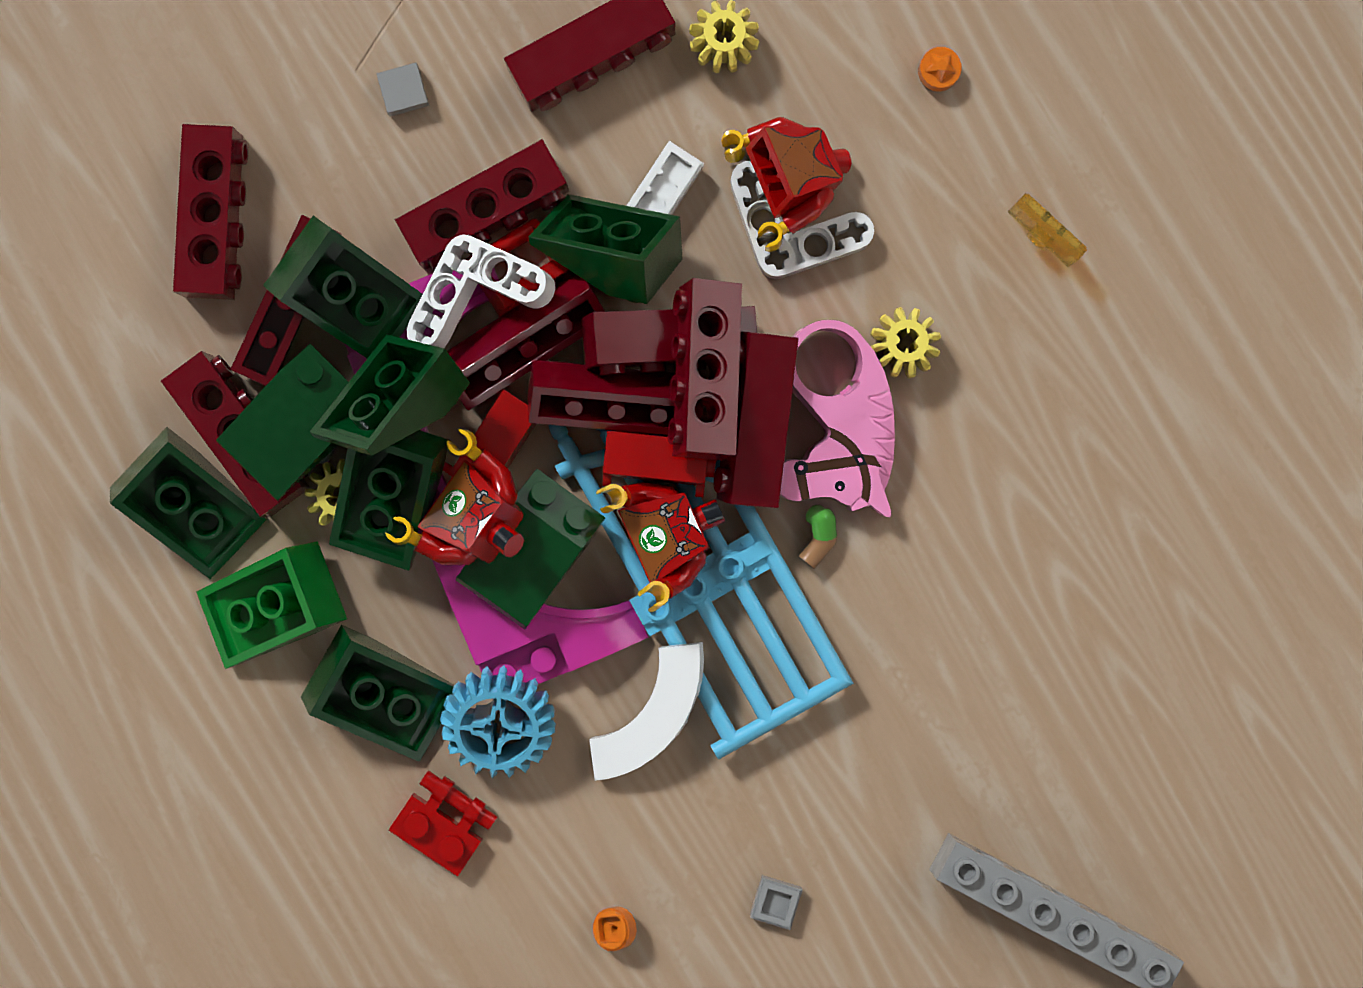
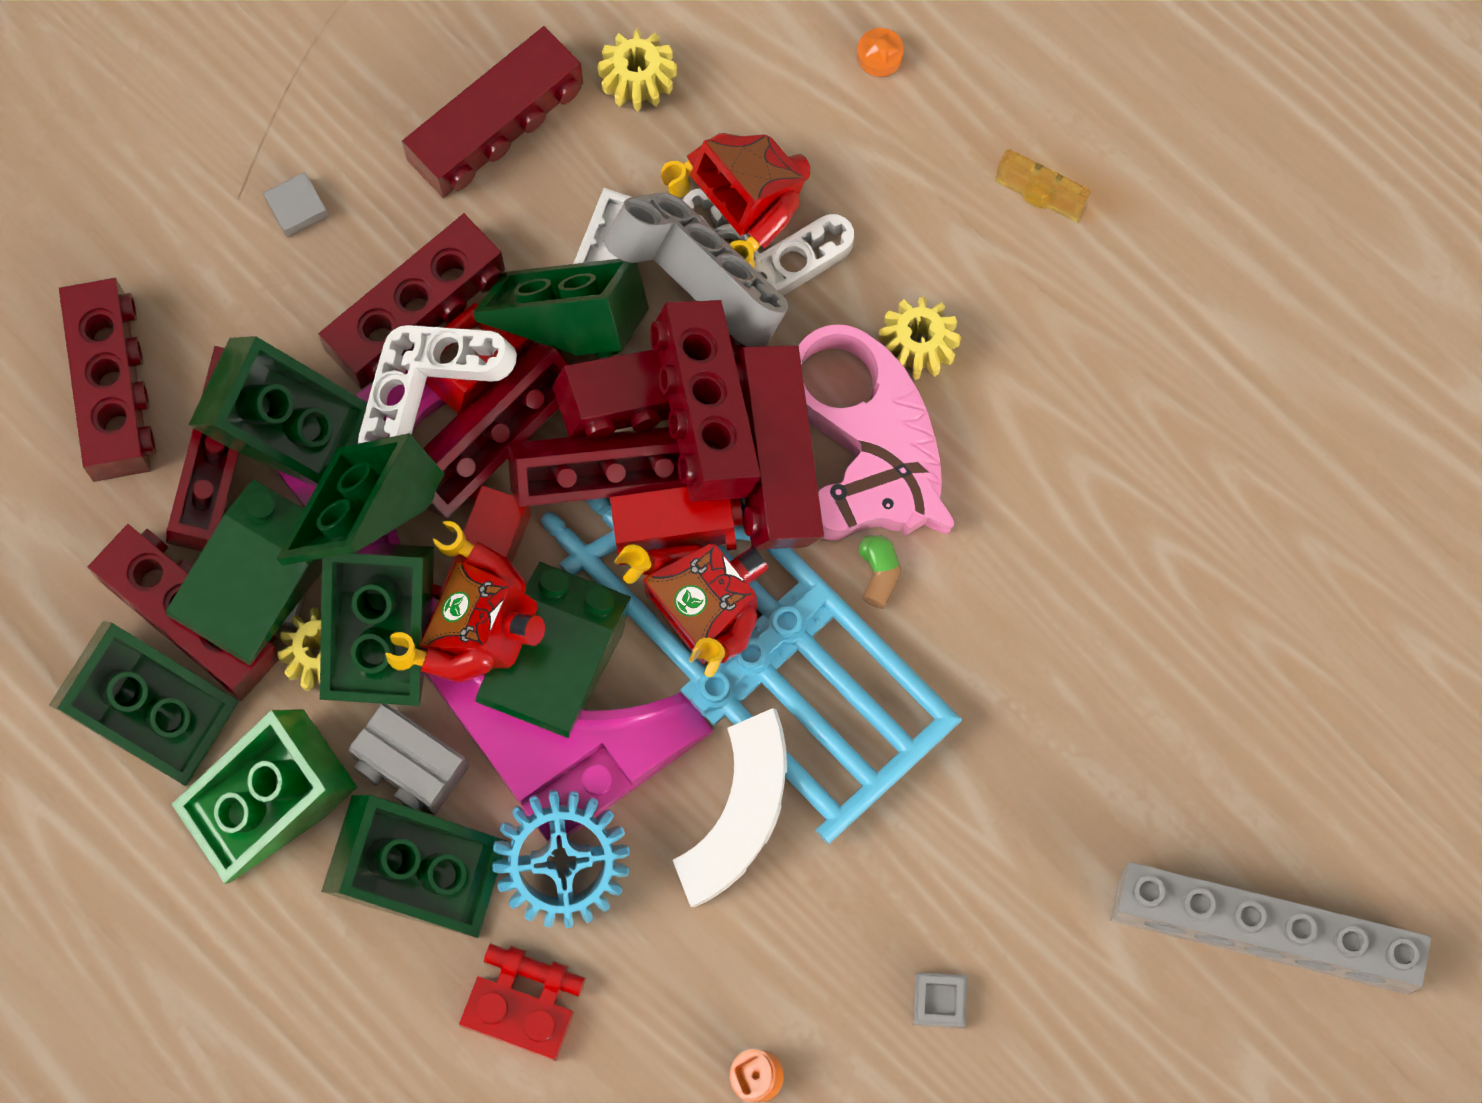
camera: 10 degrees left, 15 degrees down
(393, 606) = (407, 759): none -> light grey brick
(735, 235) = (699, 261): none -> light grey beam

